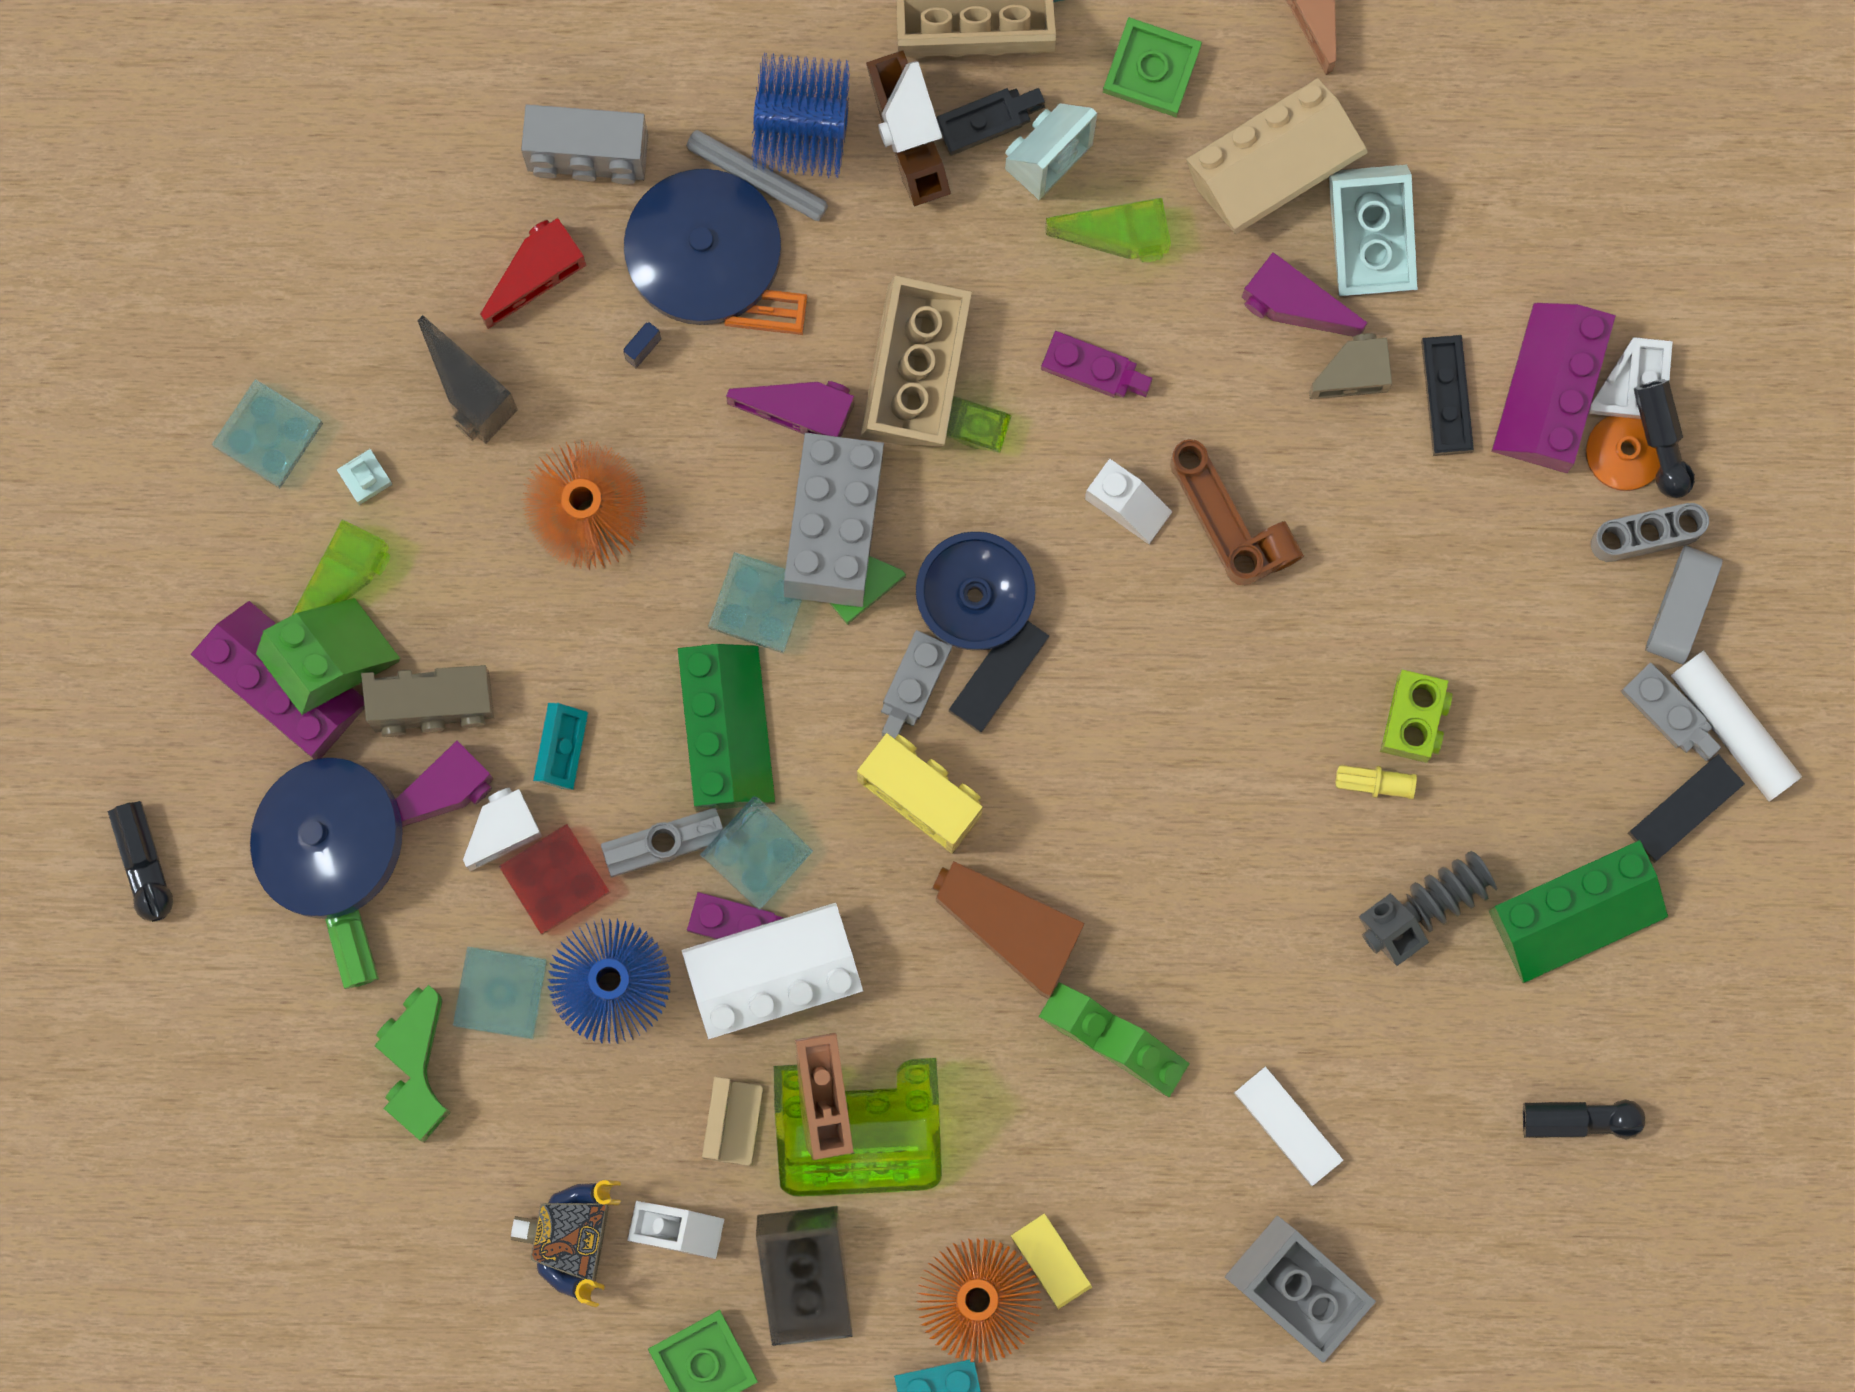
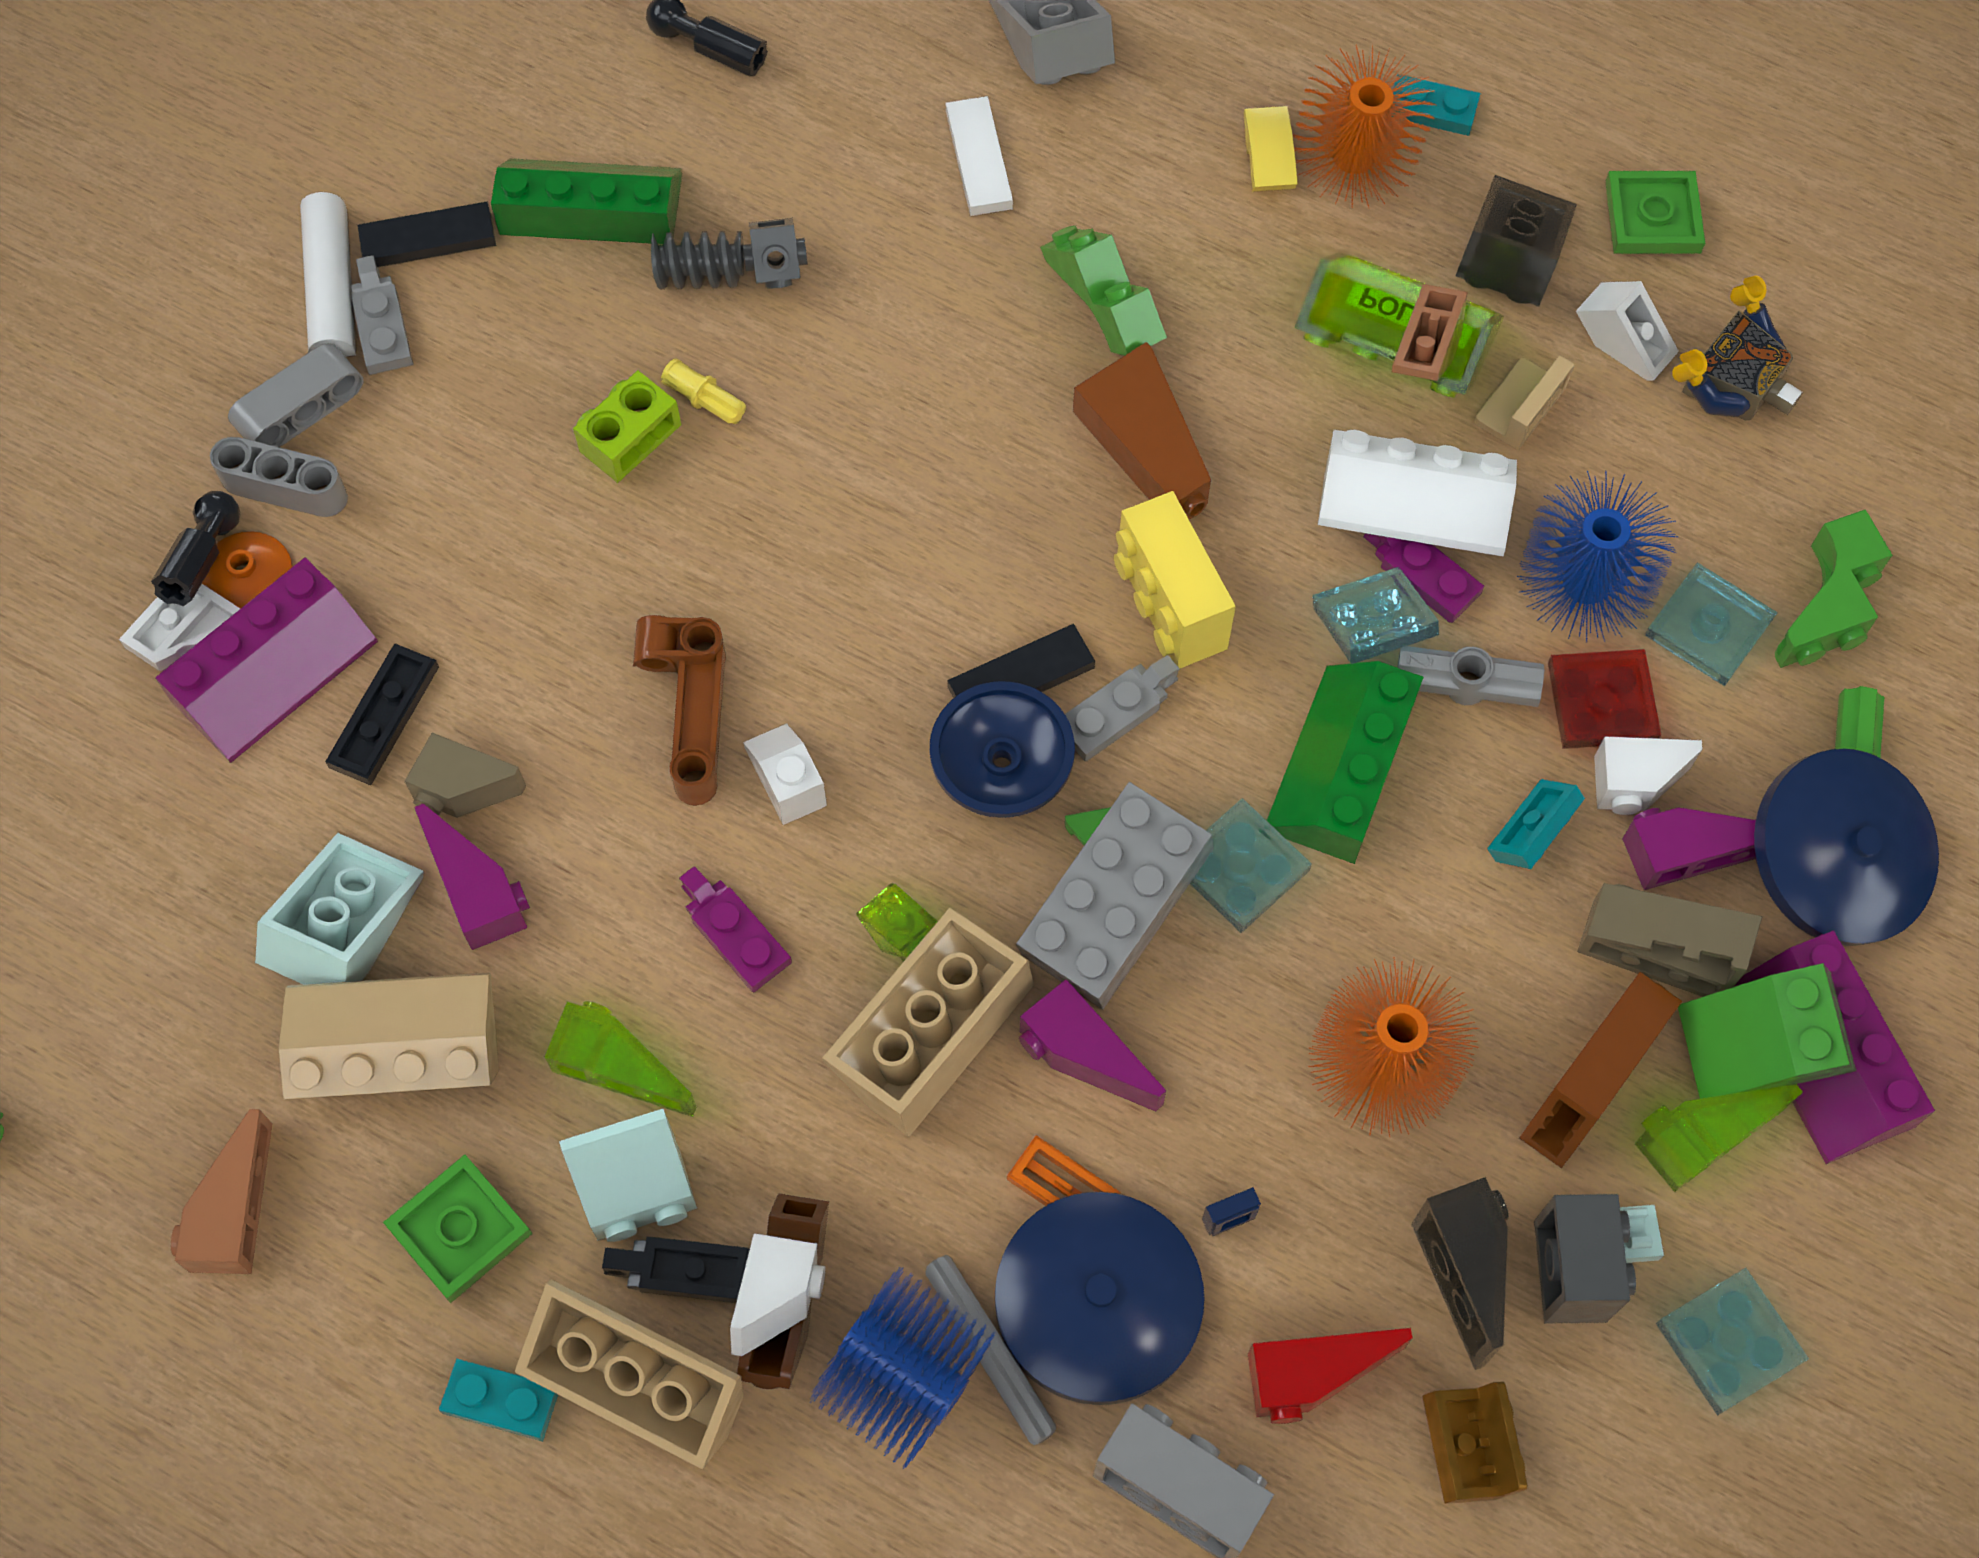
camera: 150 degrees left, 15 degrees down
(393, 430) = (1583, 1258): none -> dark grey brick
(410, 275) = (1475, 1443): none -> pearl gold bracket
(432, 579) = (1600, 1070): none -> dark orange slope

